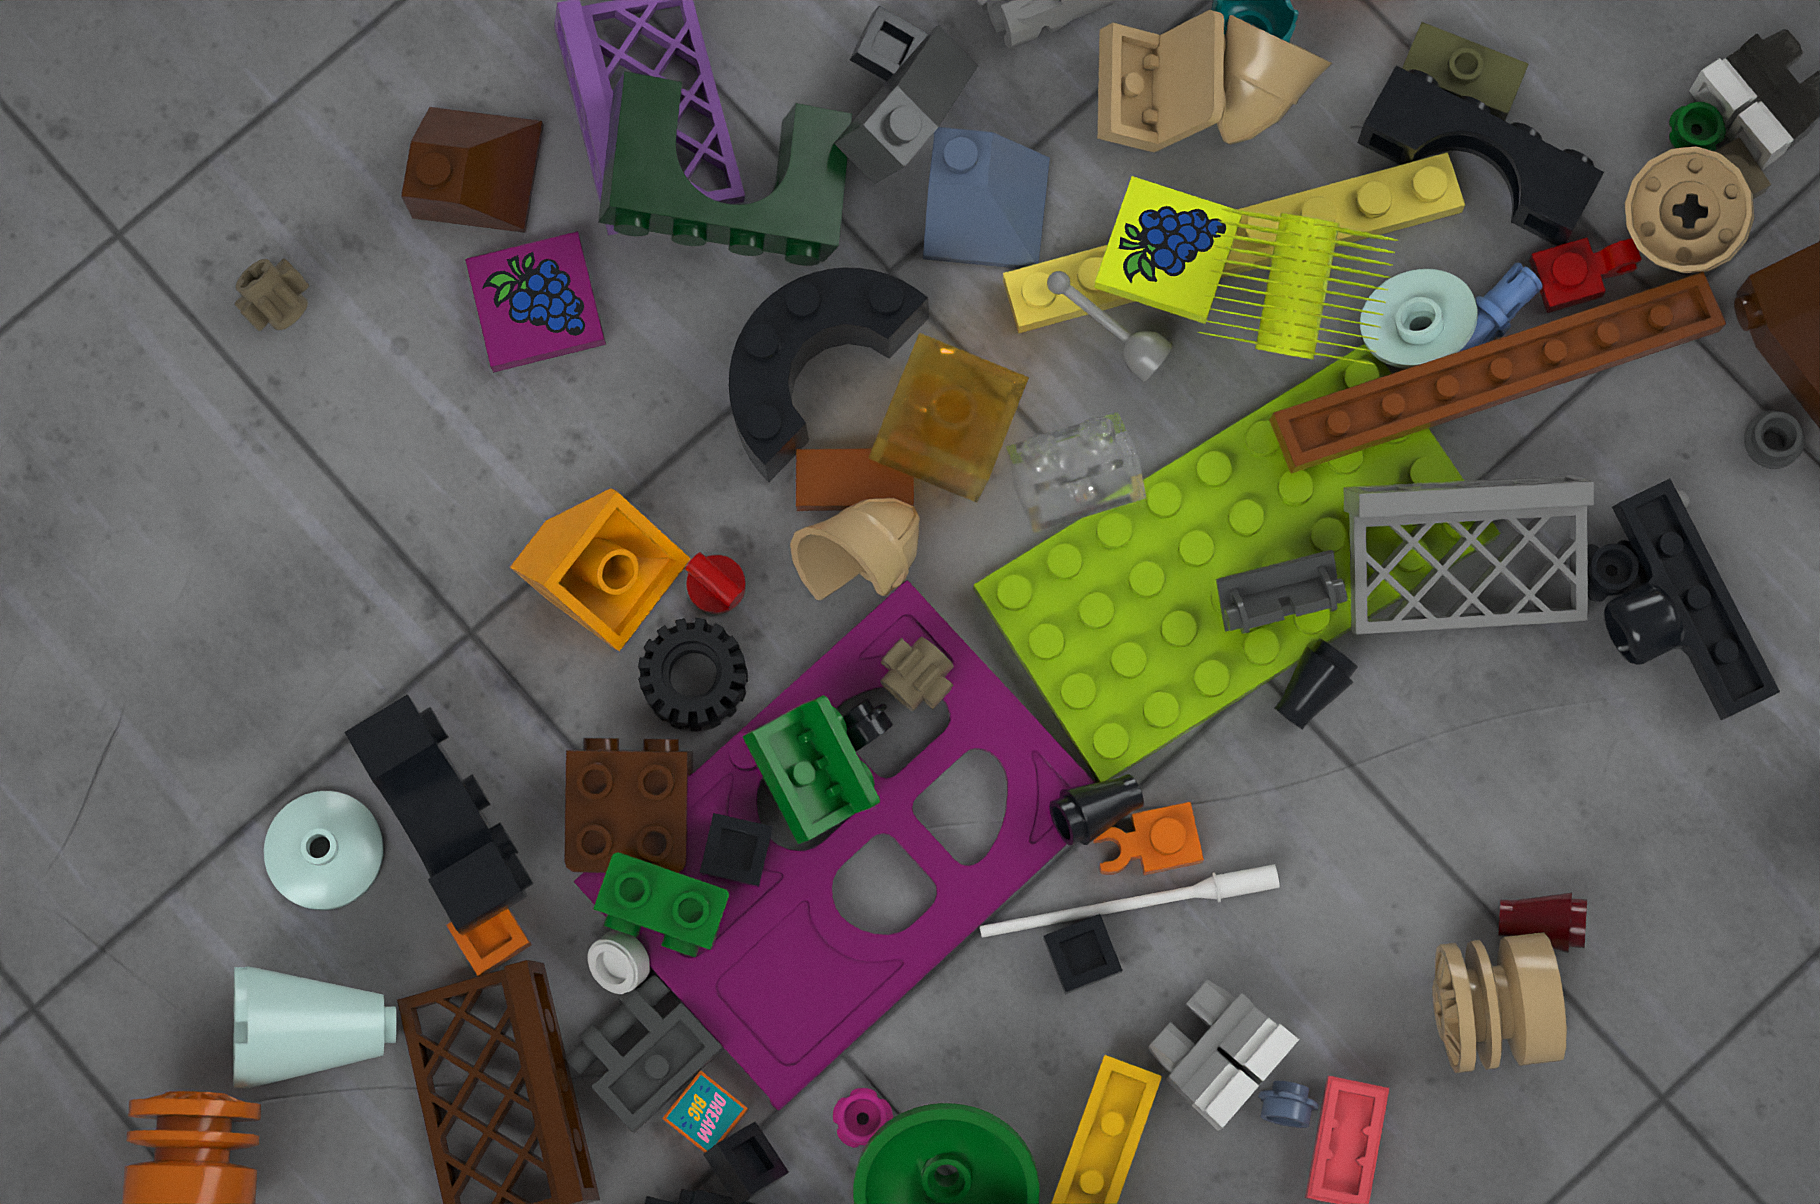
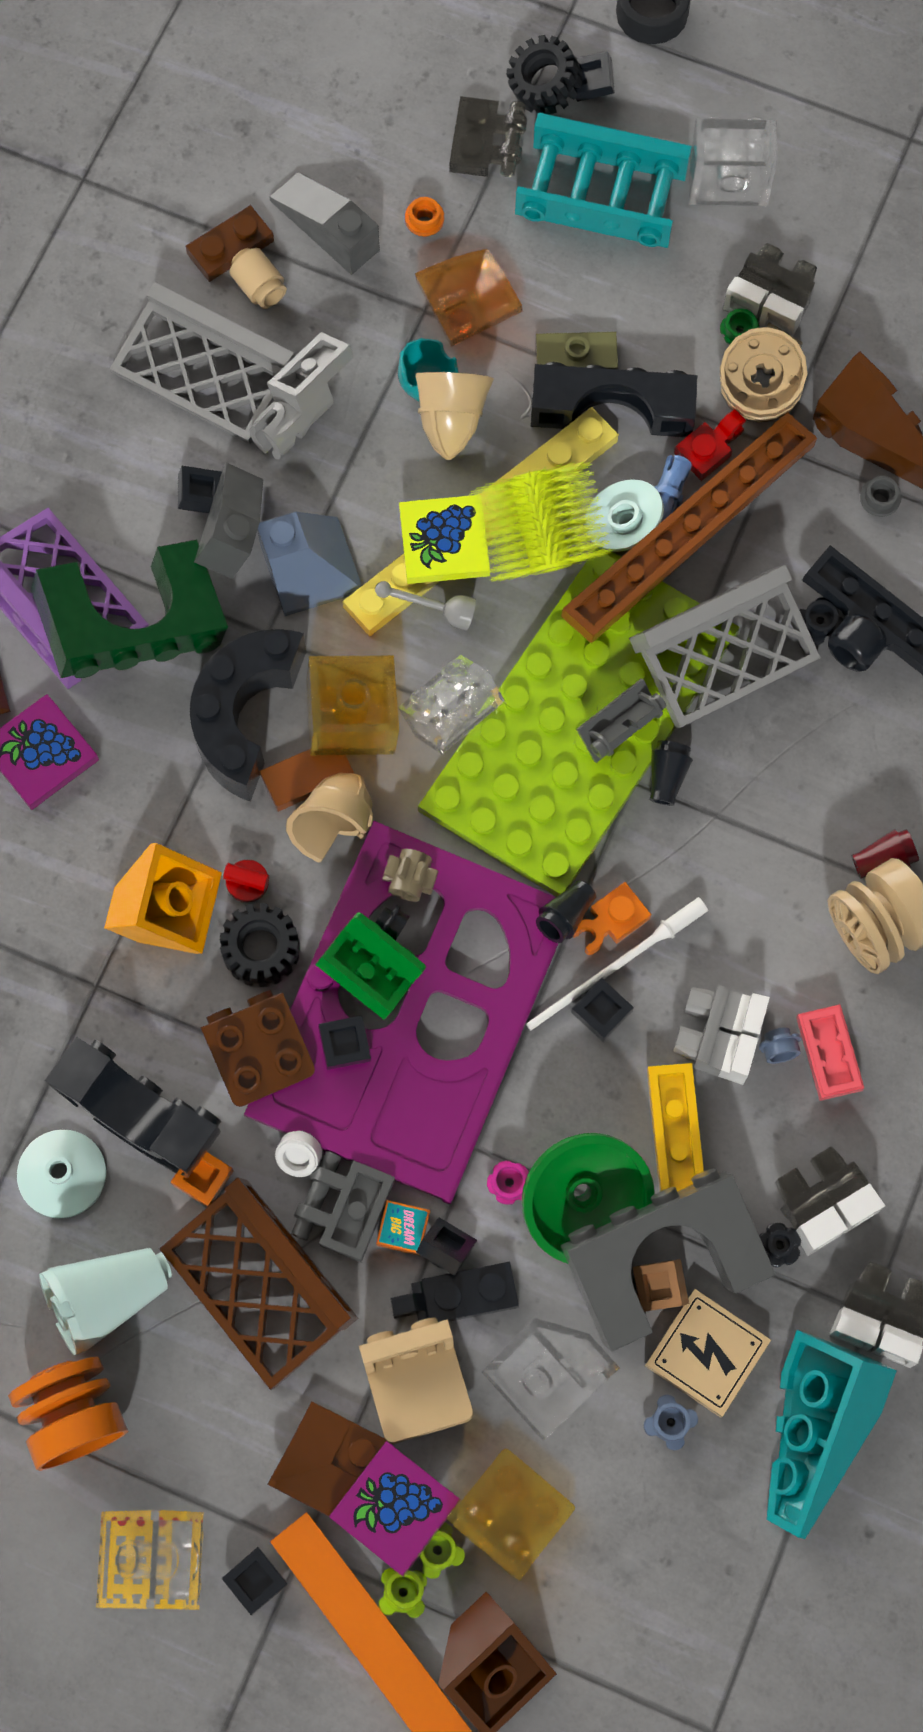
camera: 30 degrees left, 5 degrees down
(663, 901) = (312, 1097): green bracket -> none
(1162, 84) = (391, 439): tan bracket -> none

